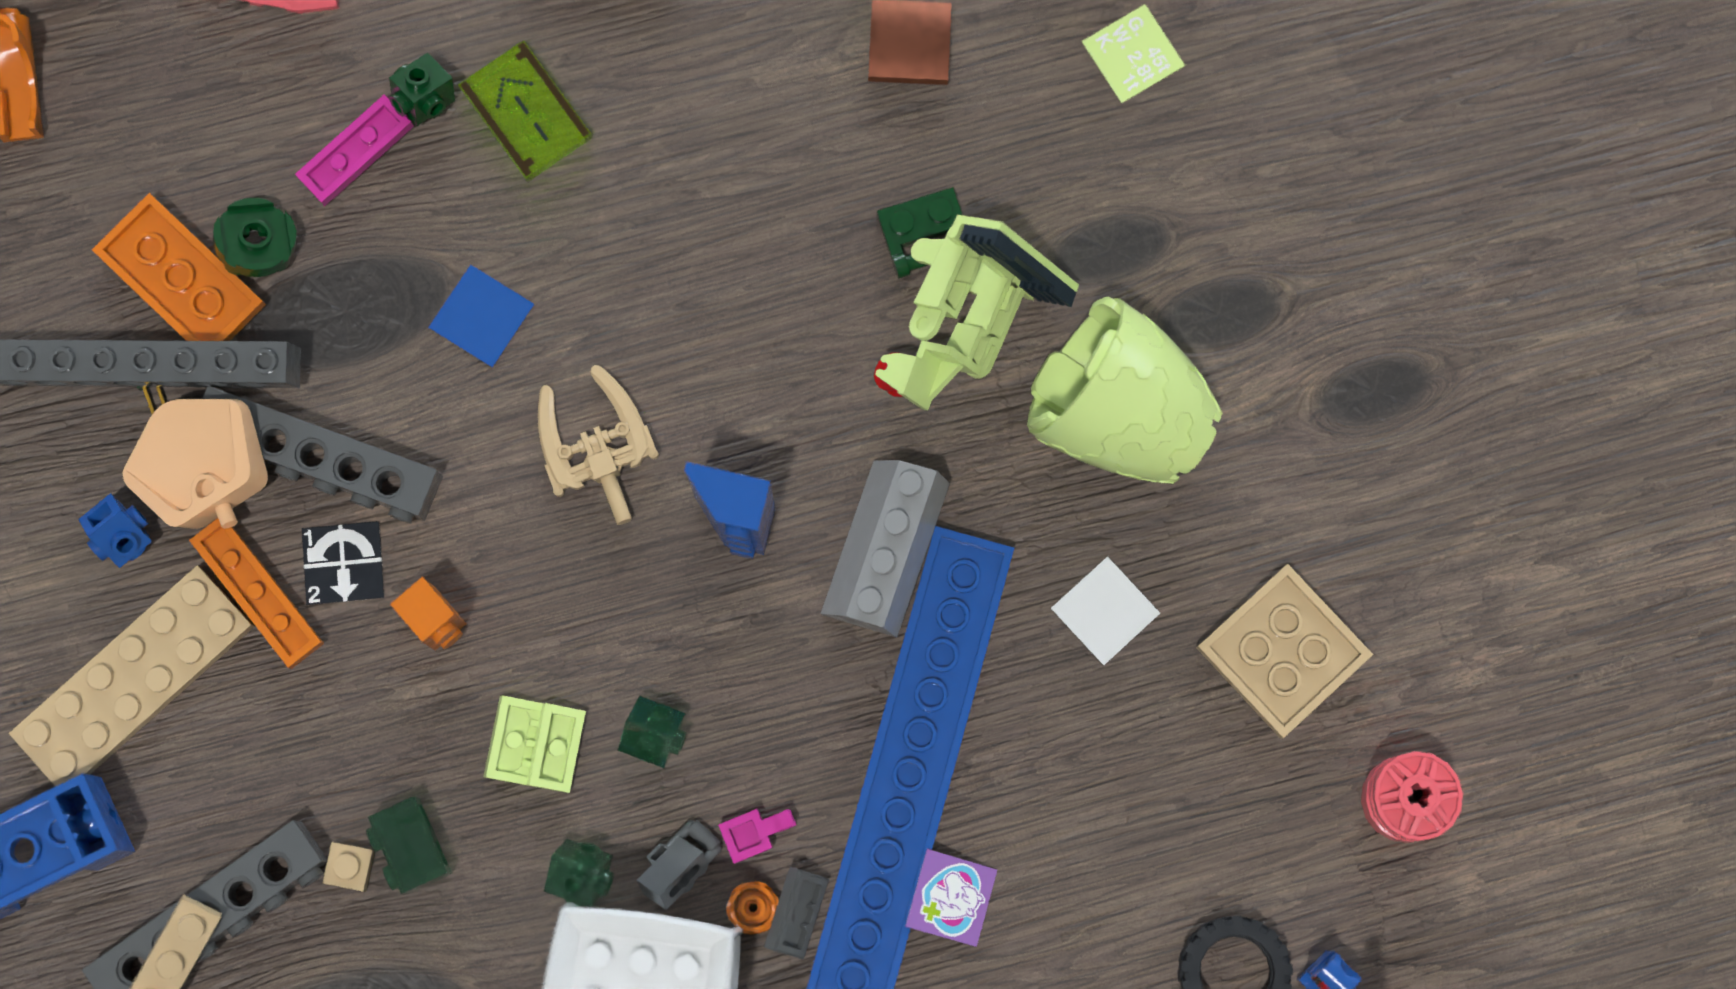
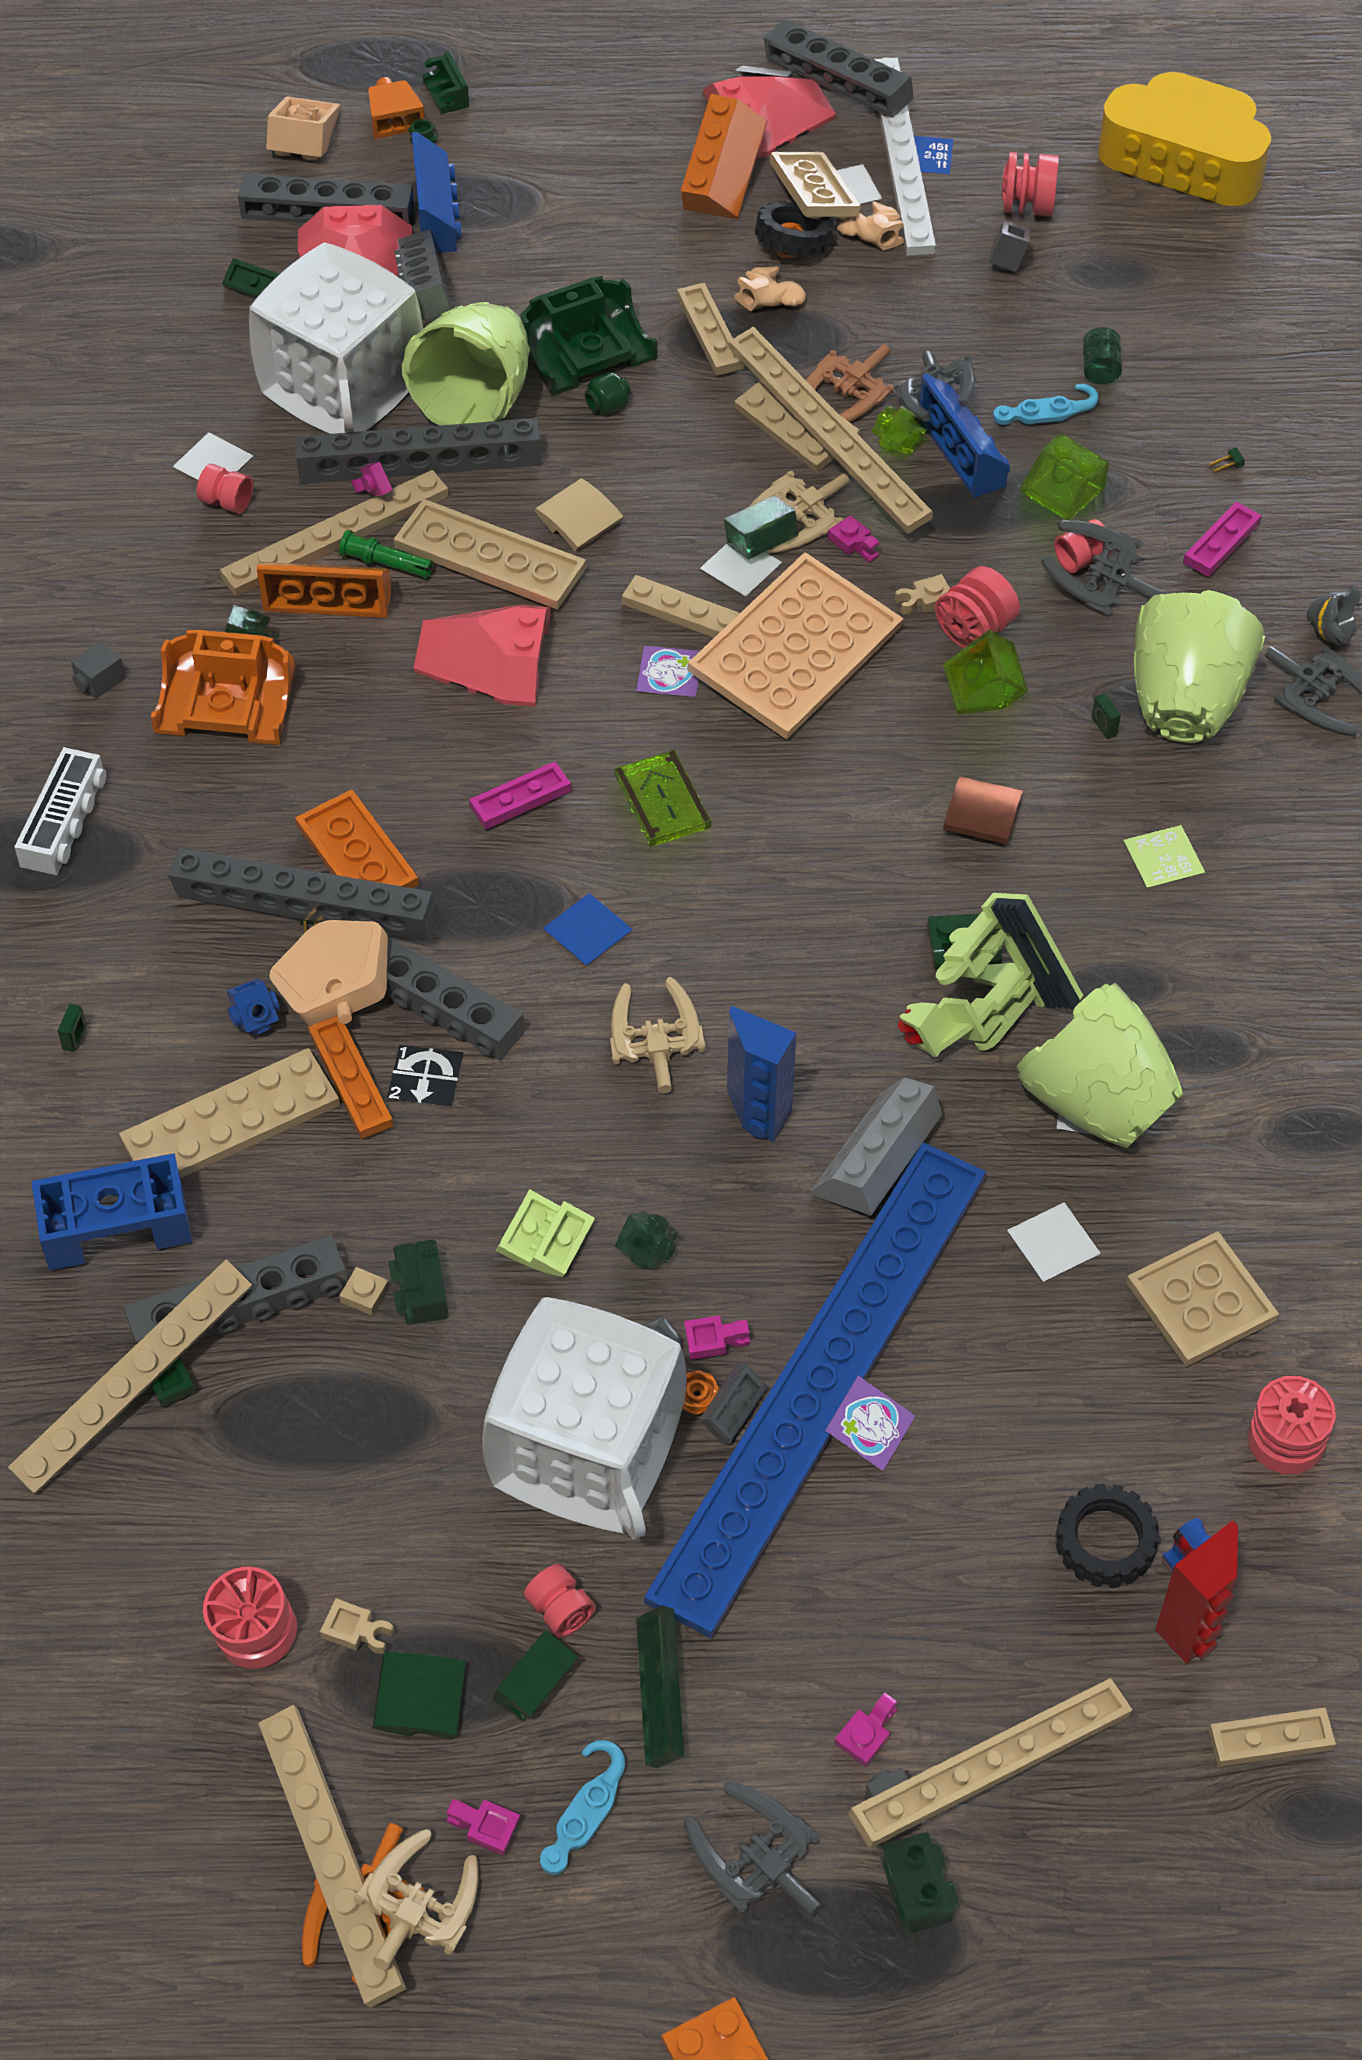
camera: 15 degrees right, 25 degrees down
(254, 259) = (432, 847): dark green plate -> none
(421, 89) = (585, 762): dark green brick -> none
(429, 615) = (487, 1112): orange brick -> none

